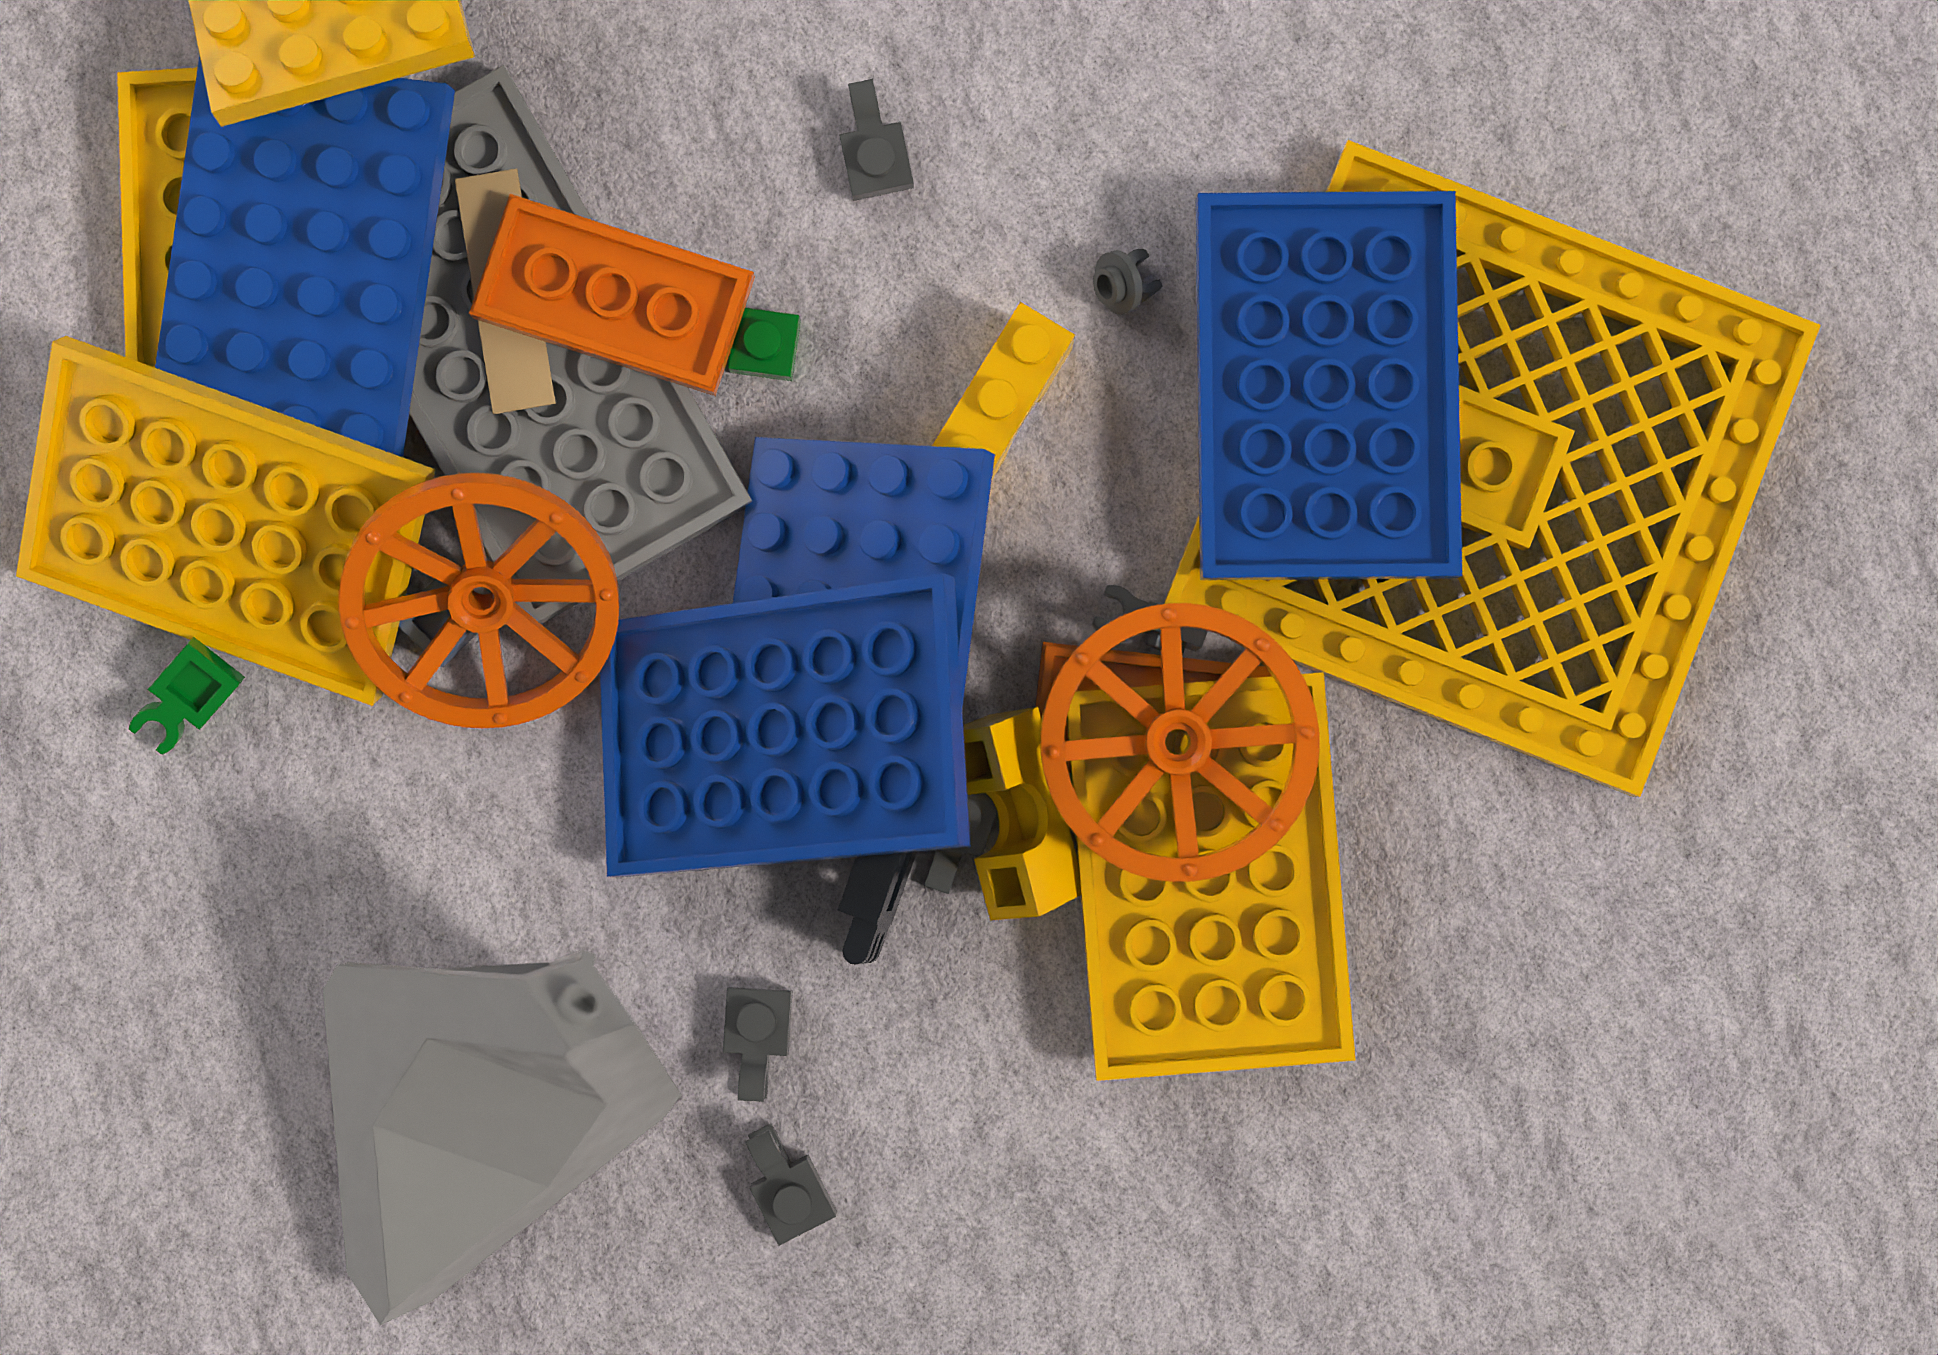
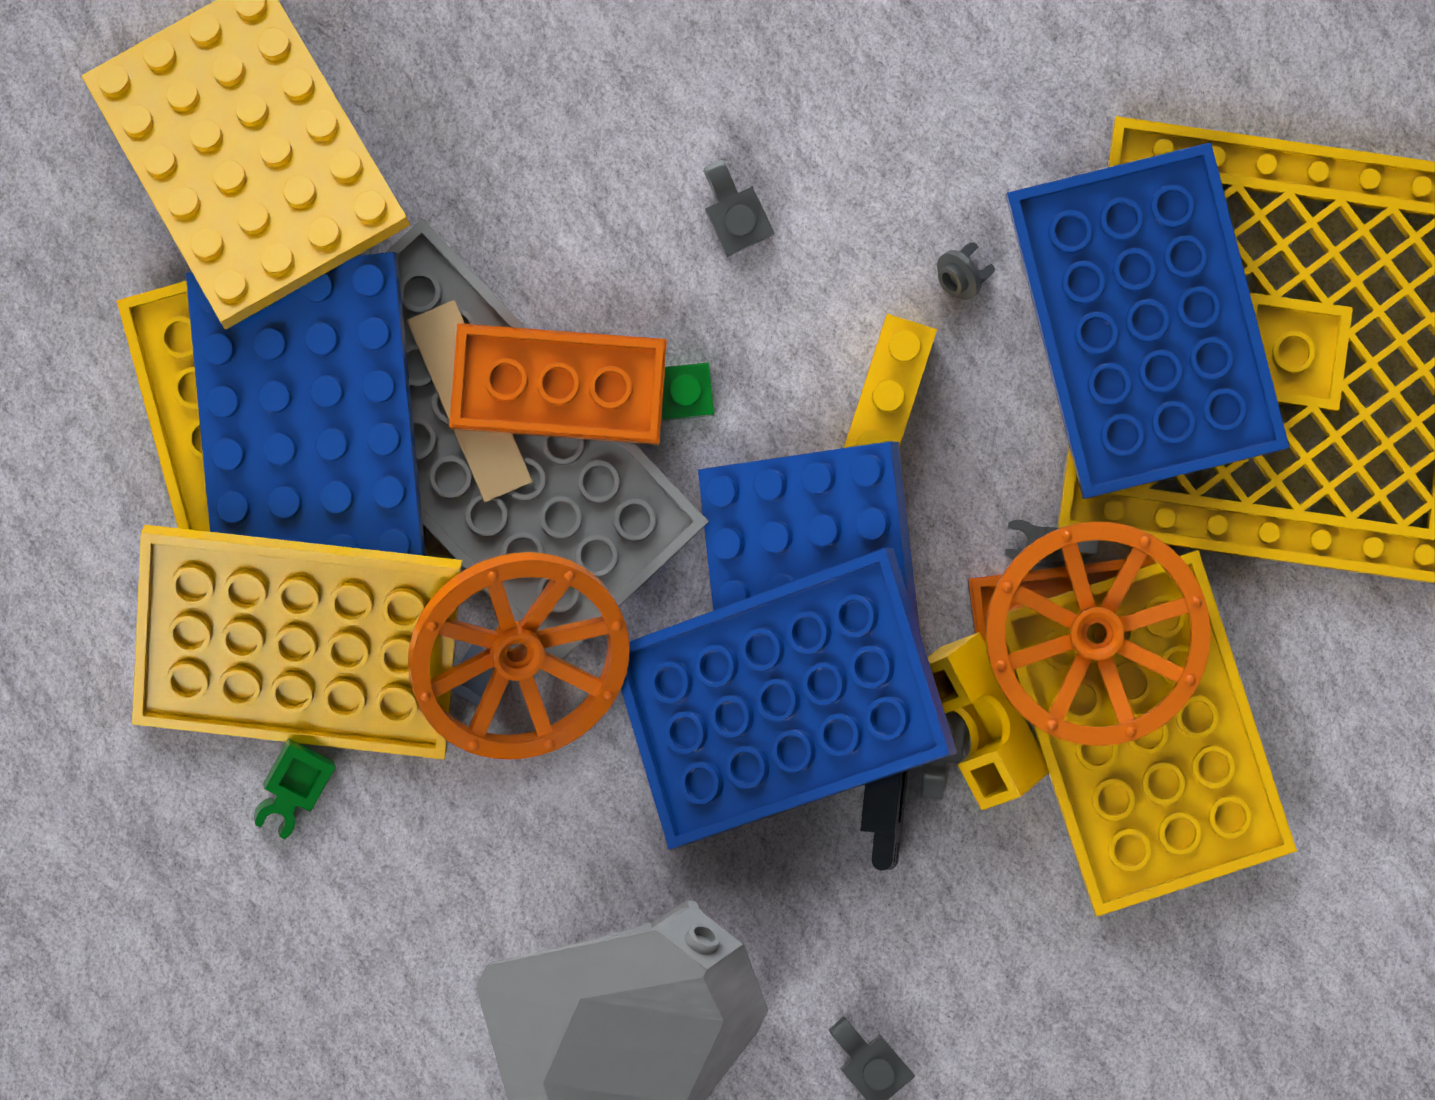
camera: 15 degrees left, 0 degrees up
(756, 1028) = (816, 941): dark grey plate -> none

